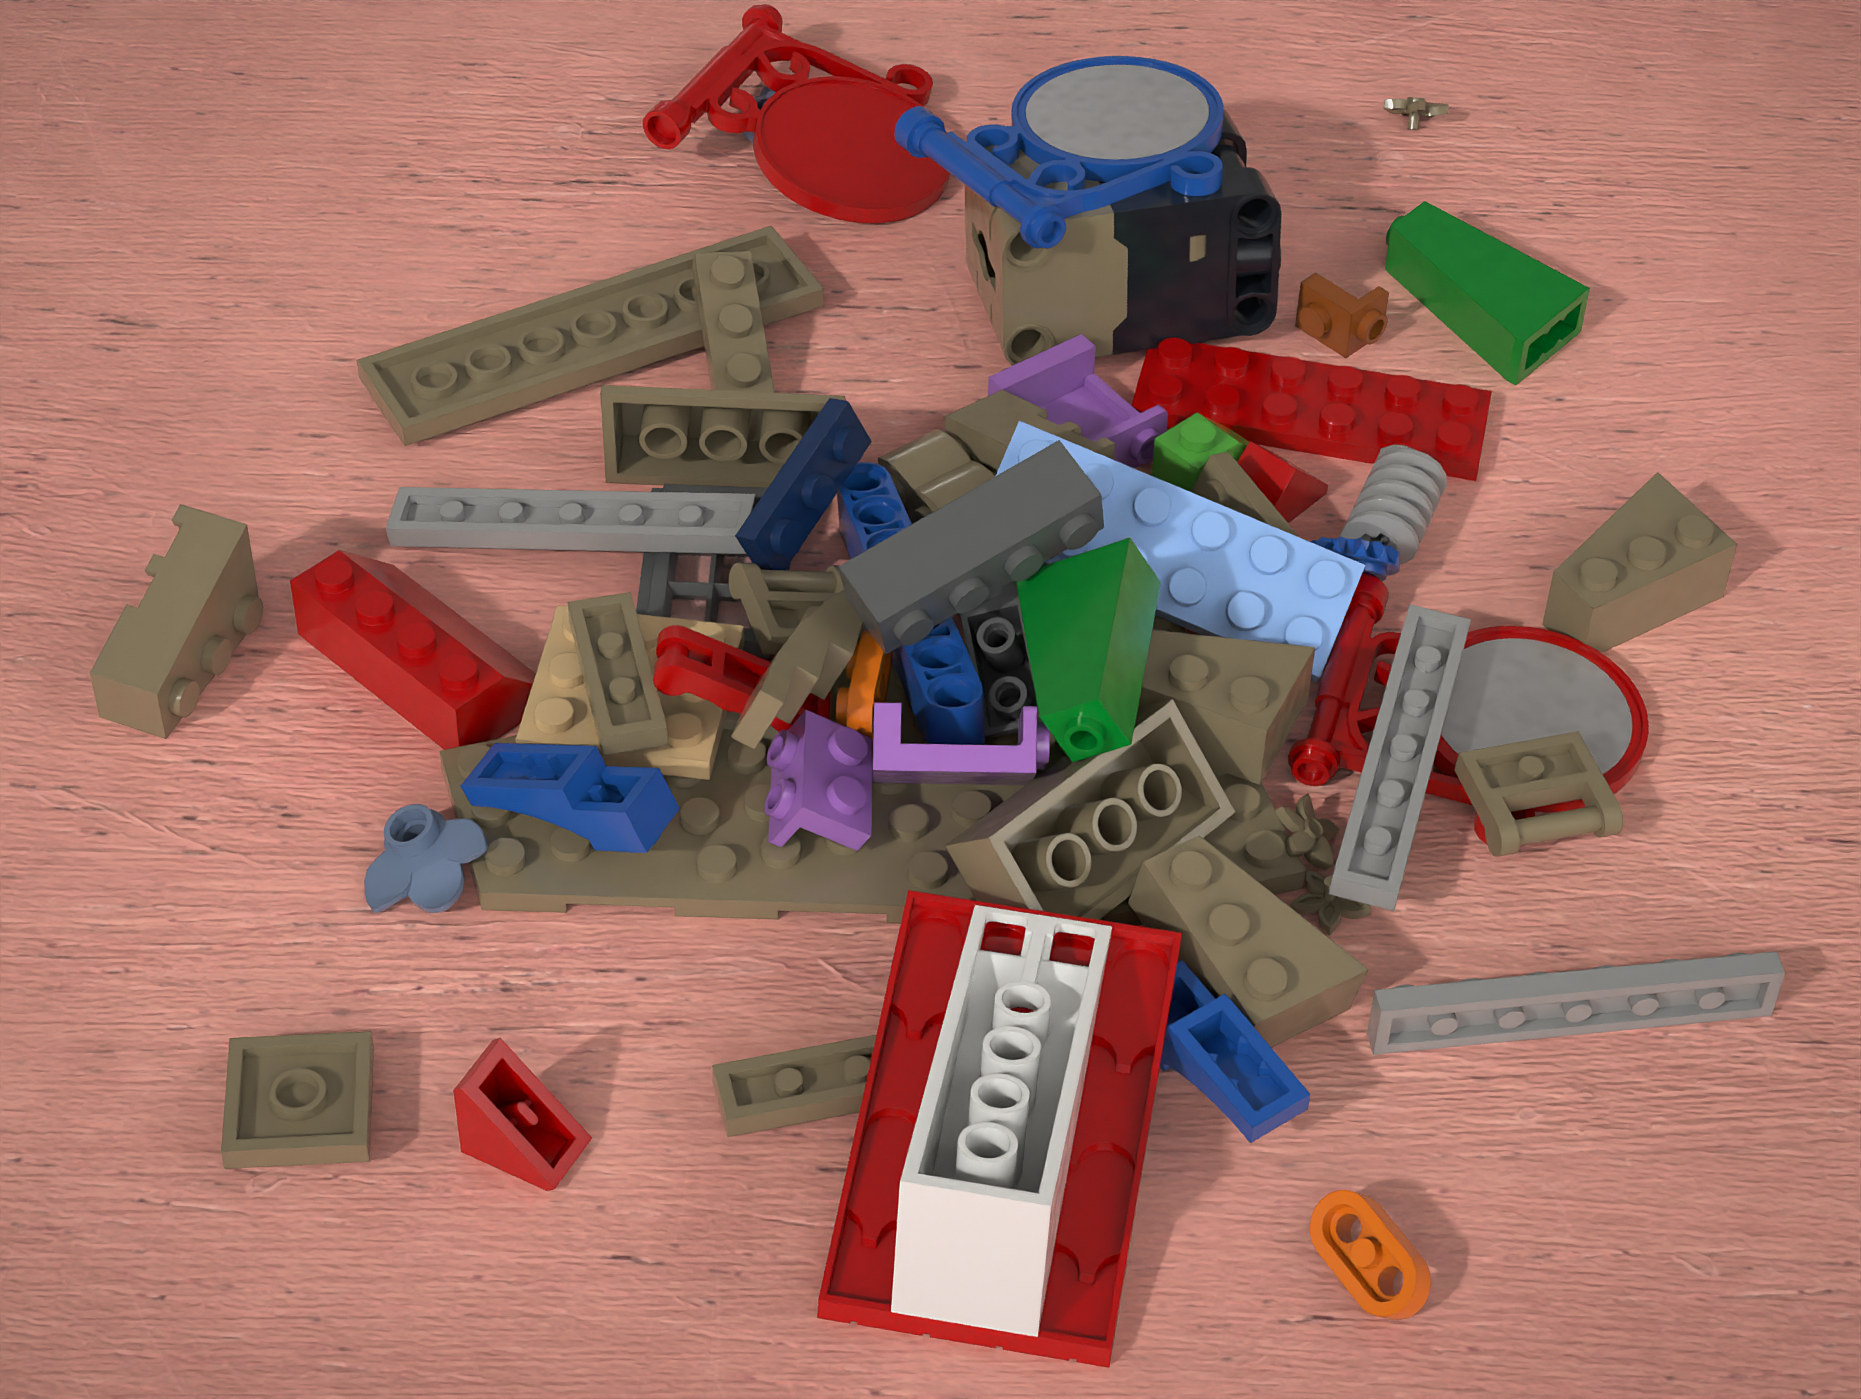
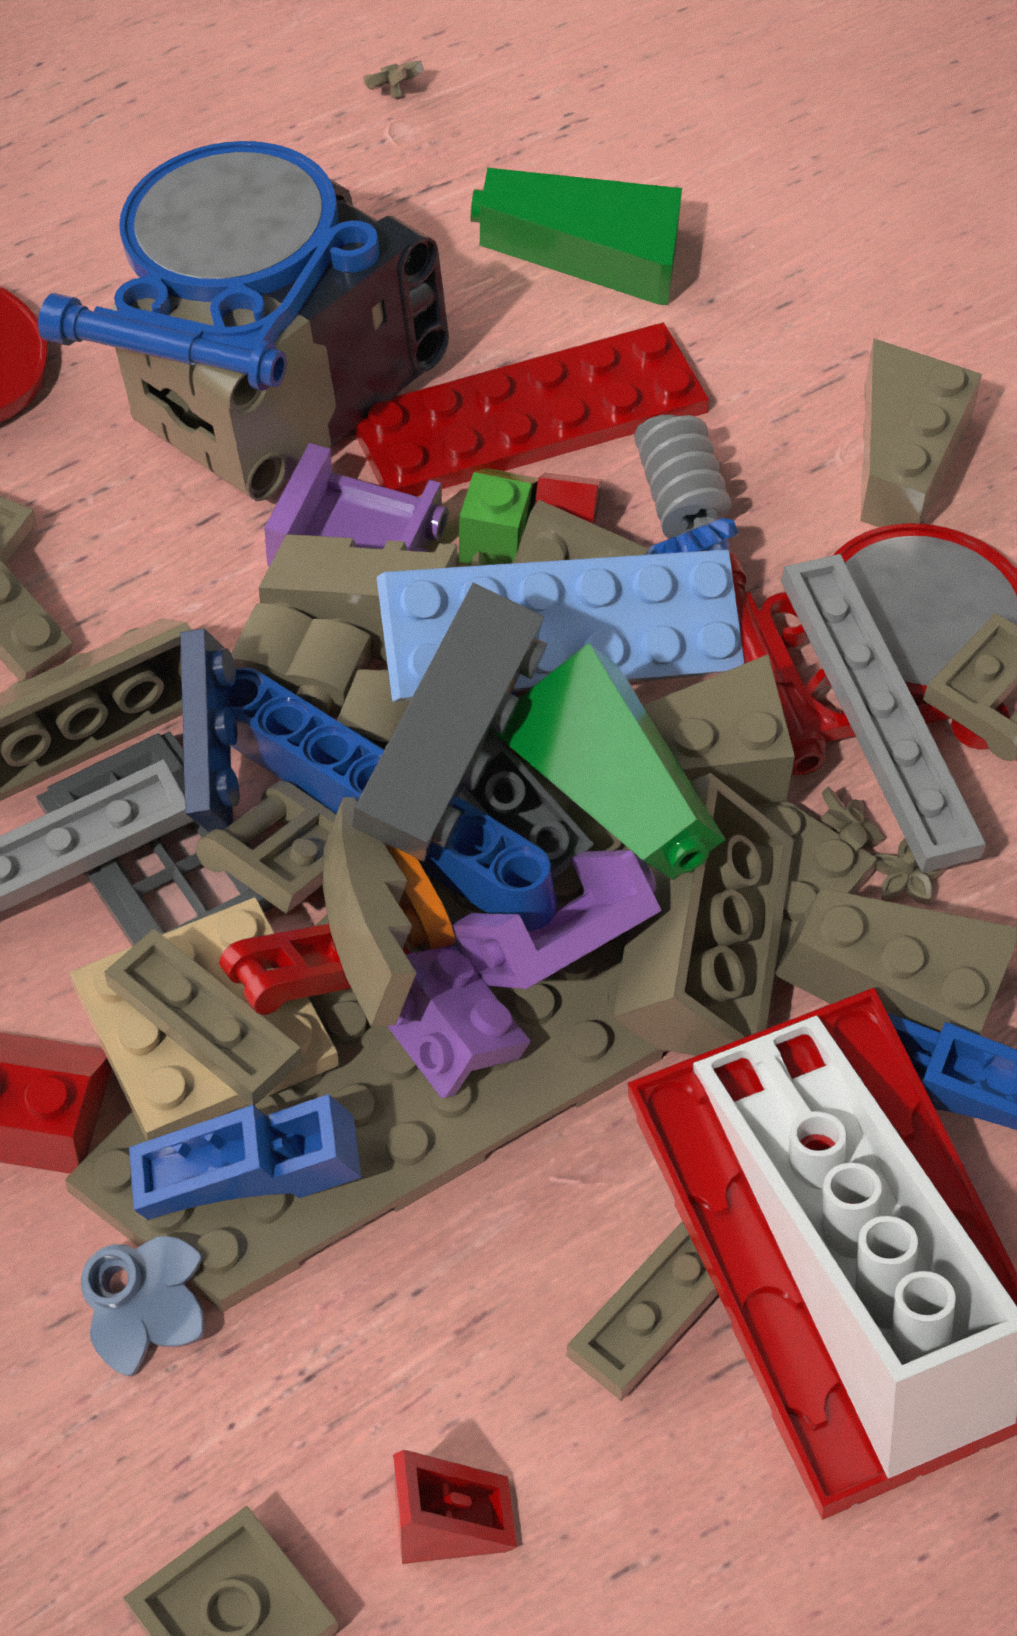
camera: 35 degrees left, 10 degrees up
(1339, 317) = (491, 313): dark orange bracket -> none

